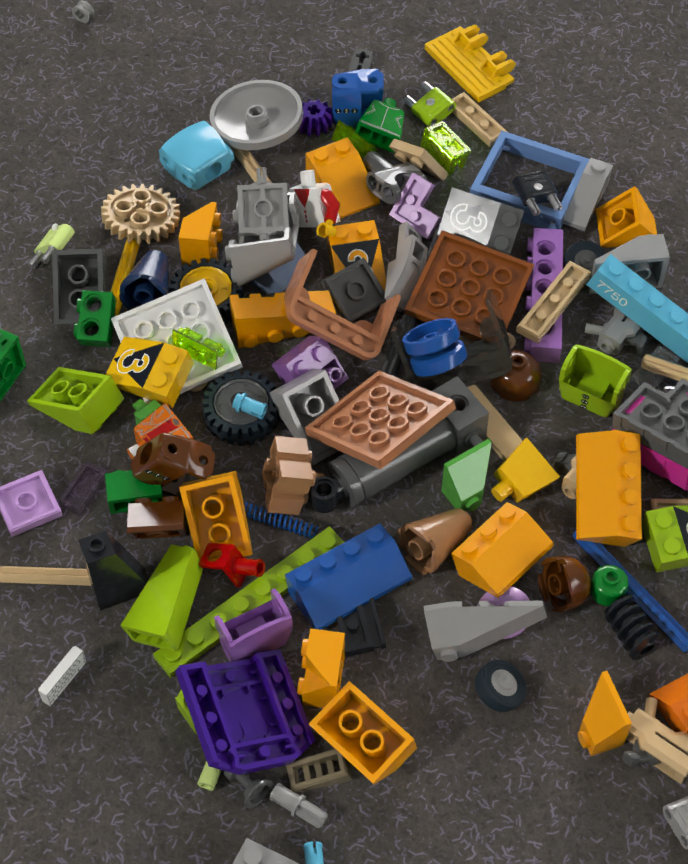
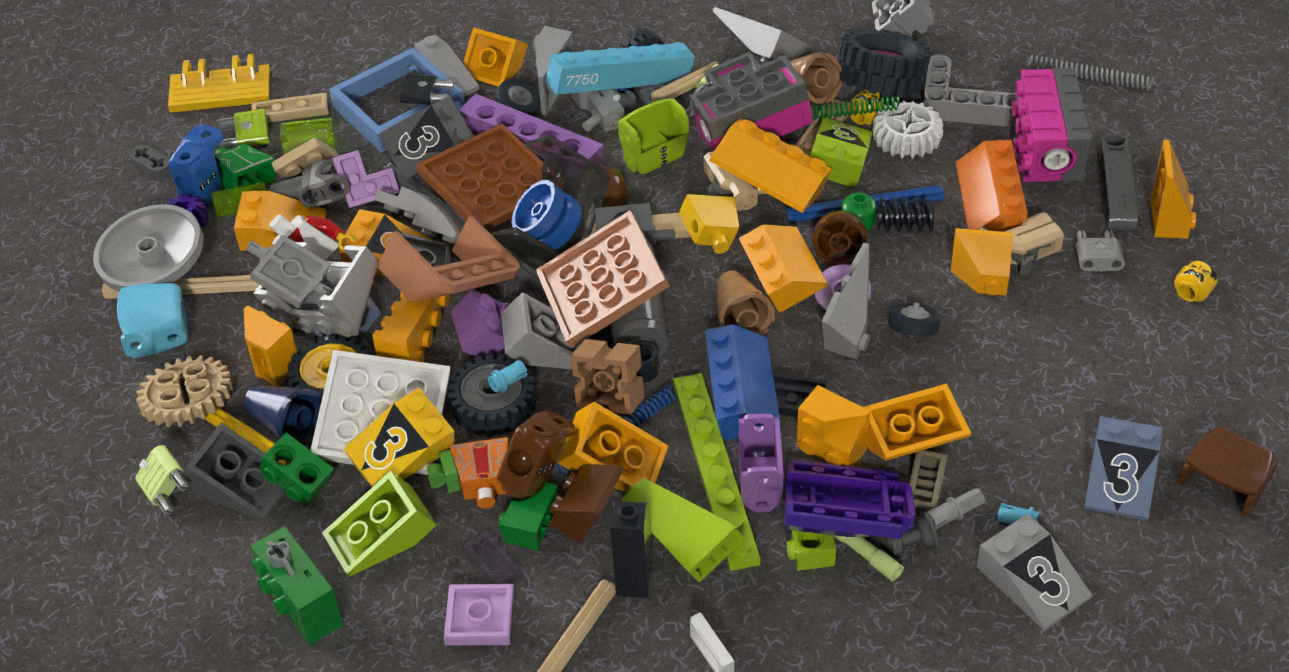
camera: 60 degrees left, 10 degrees down
(205, 352) = (424, 378): clear neon green hinge -> none
(232, 563) = (672, 458): red bracket -> none
(466, 477) = (695, 257): bright green slope -> none
(553, 302) = (547, 120): tan tile -> none

